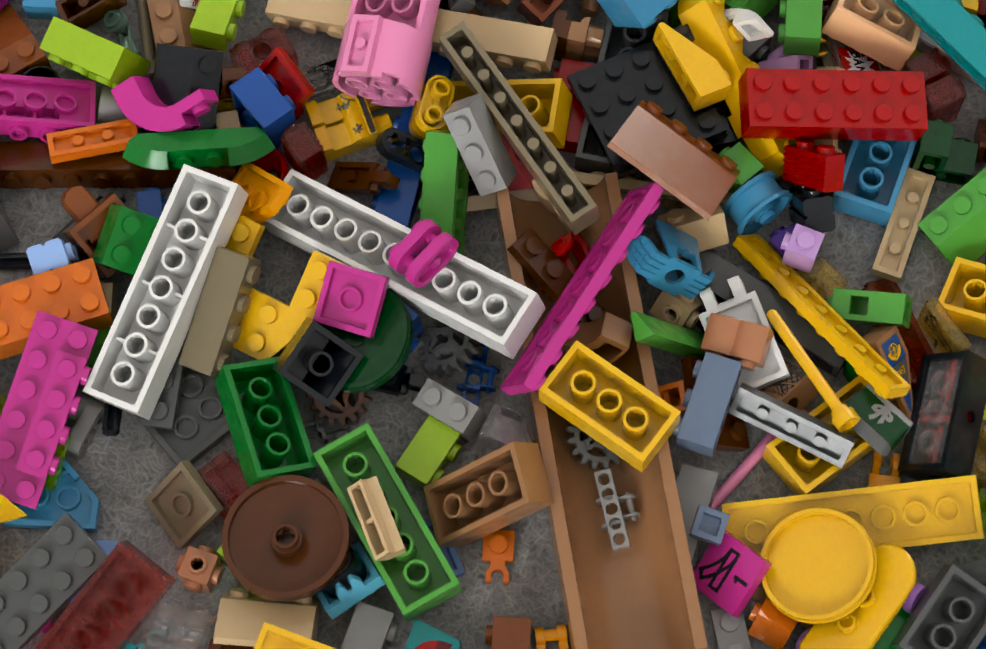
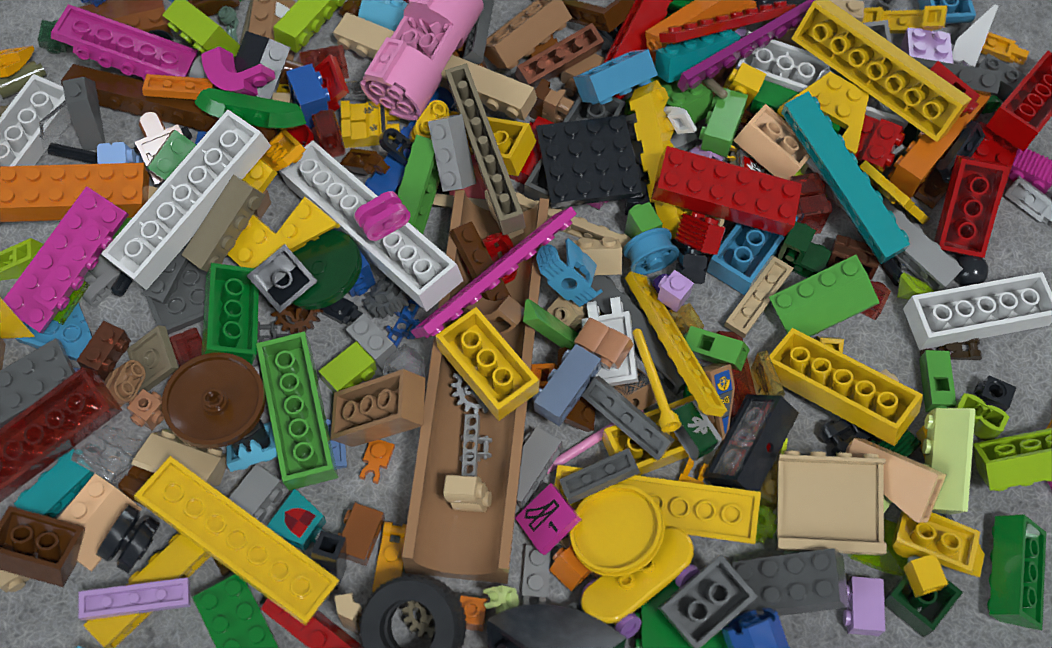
camera: 10 degrees right, 5 degrees down
(119, 508) = (104, 349): none -> copper brick
(162, 541) = (125, 381): none -> medium nougat brick
(351, 299) = (320, 237): dark pink tile -> none
(376, 519) = (285, 403): tan piece -> none
(629, 570) = (467, 493): none -> tan brick
(675, 158) = (594, 197): slope -> none
(693, 68) = (629, 141): yellow slope -> none
(709, 525) = (541, 477): sand blue plate -> none
(778, 505) = (599, 476): none -> dark grey plate

